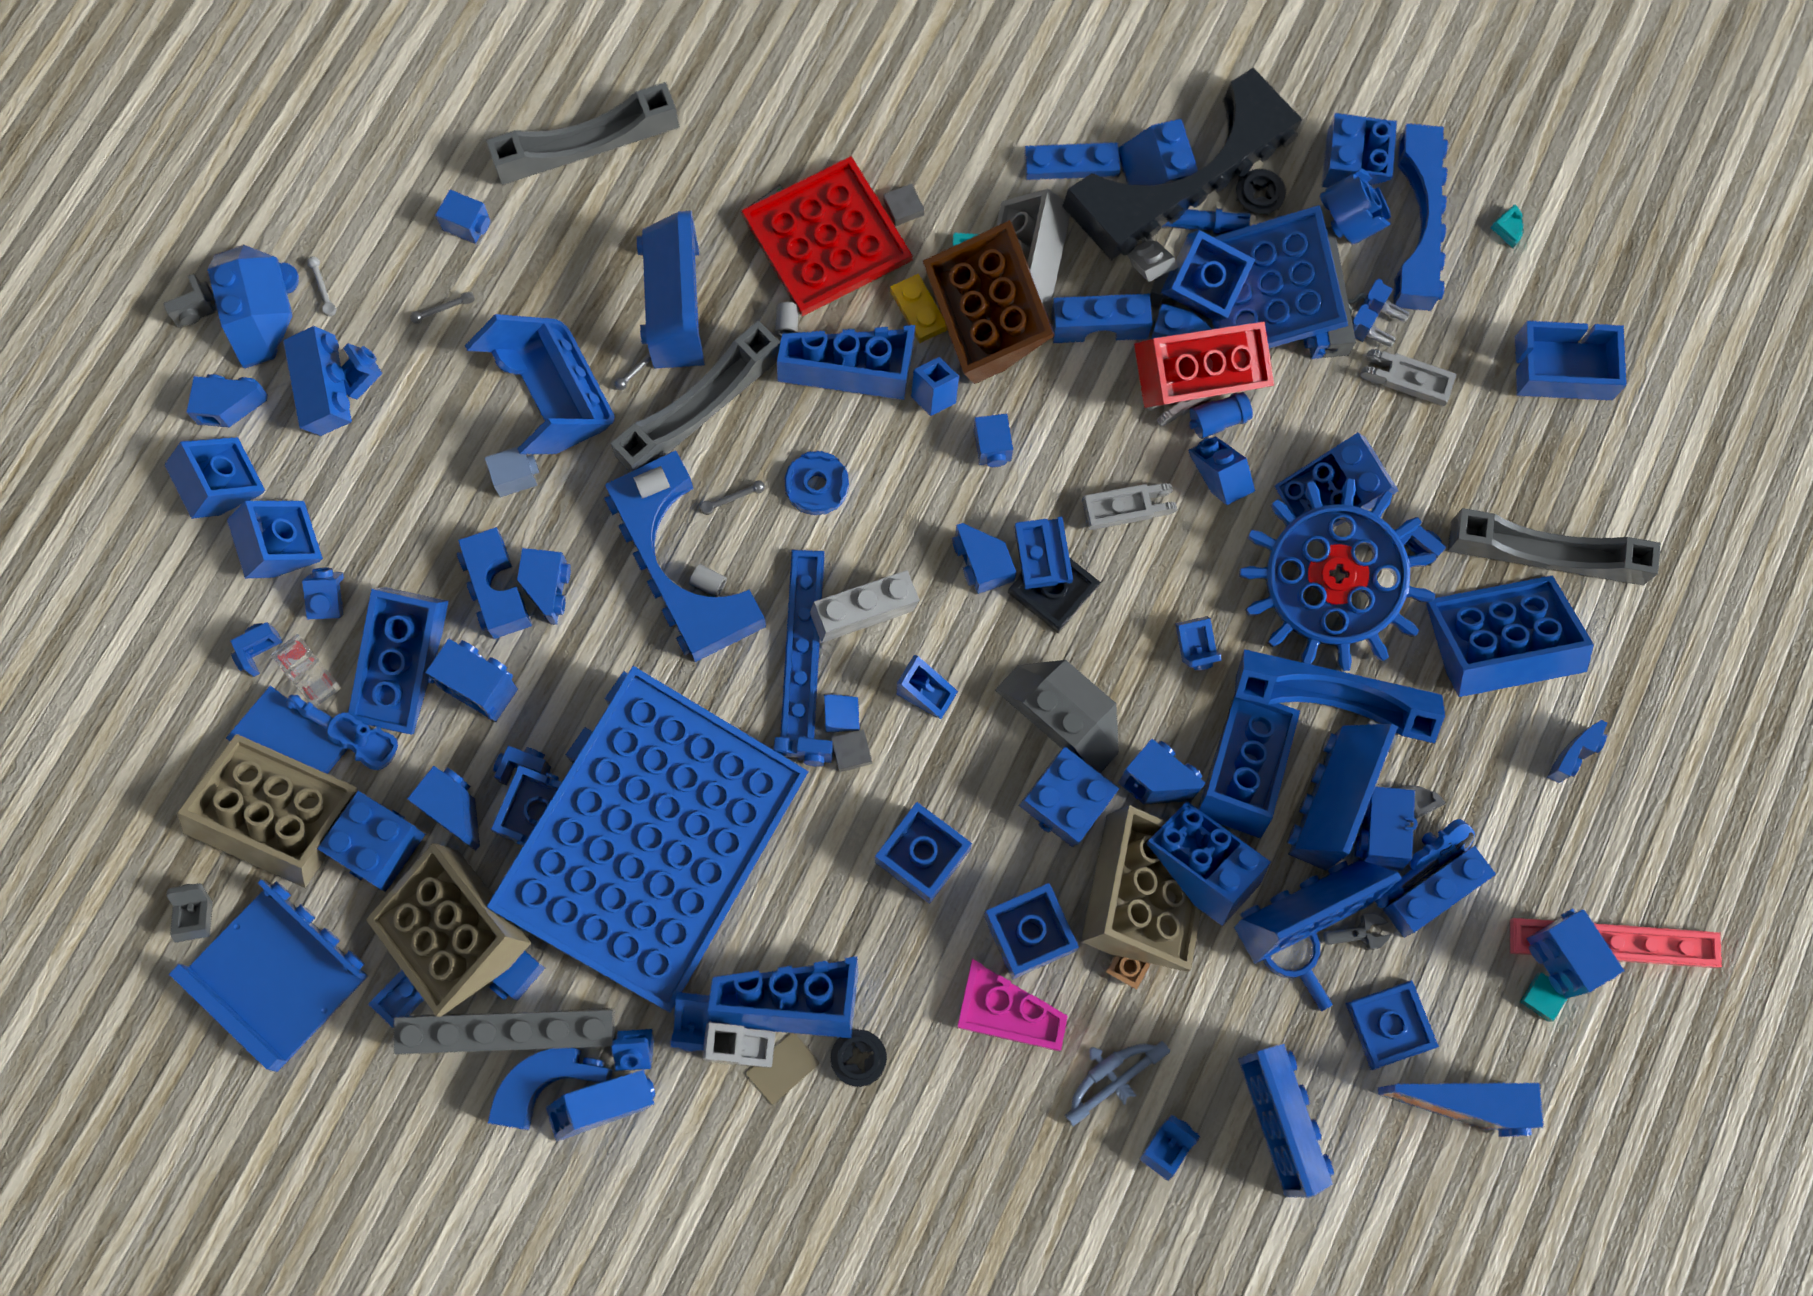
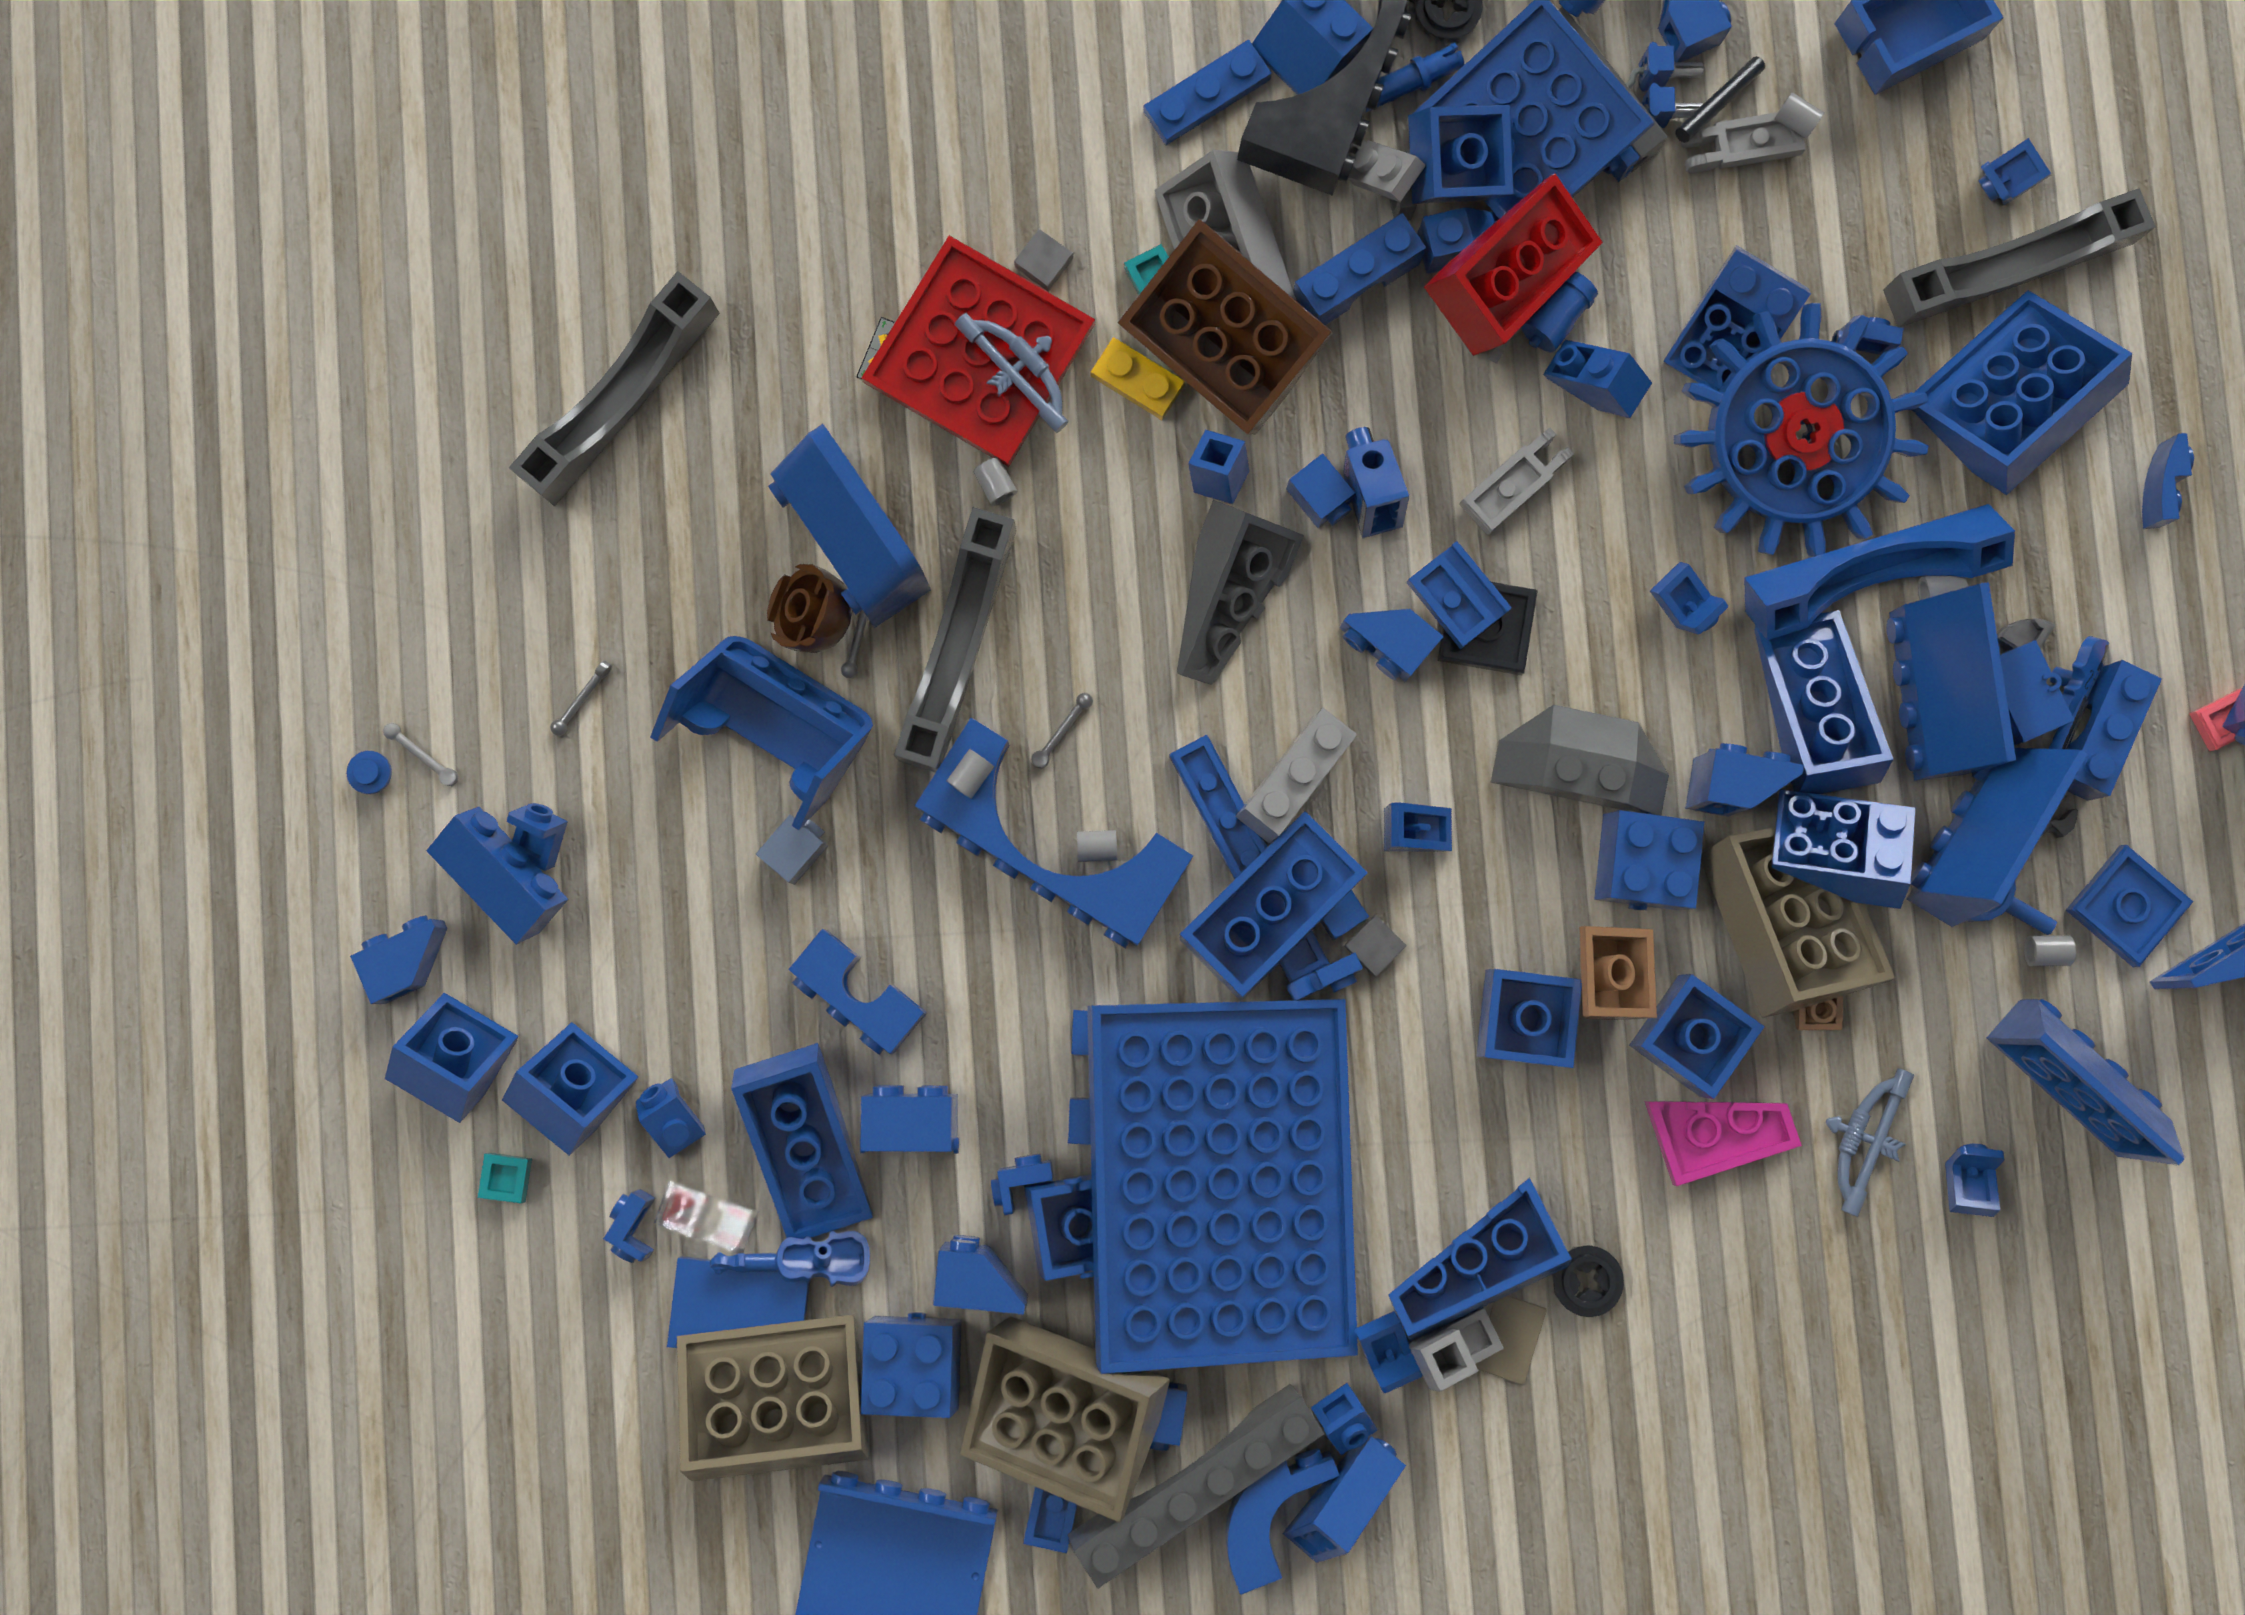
camera: 30 degrees left, 10 degrees up
(190, 912) = (759, 1563): dark grey bracket -> none
(192, 306) = (286, 871): dark grey bracket -> none
(197, 572) = (504, 1178): none -> teal tile
(250, 302) = (351, 823): blue wedge -> none
(463, 216) = (536, 574): blue brick -> none
(542, 579) = (909, 956): blue slope -> none
(616, 330) = (809, 610): none -> reddish brown cylinder
(795, 679) = (1272, 905): none -> blue slope
(822, 500) = (1122, 665): blue tile -> none
(847, 294) = (1028, 356): none -> sand blue piece
(849, 361) = (1104, 491): blue wedge -> none
(901, 462) = (1232, 574): none -> dark grey wedge
(997, 854) = (1617, 973): none -> medium nougat slope
(1031, 448) = (1377, 482): none -> blue torso
(1316, 1021) = (2050, 950): none -> light grey hinge
(1408, 340) = (1720, 99): none -> black bar
(1453, 376) = (1799, 115): none -> light grey hinge
(1582, 493) = (2013, 173): none -> blue bracket

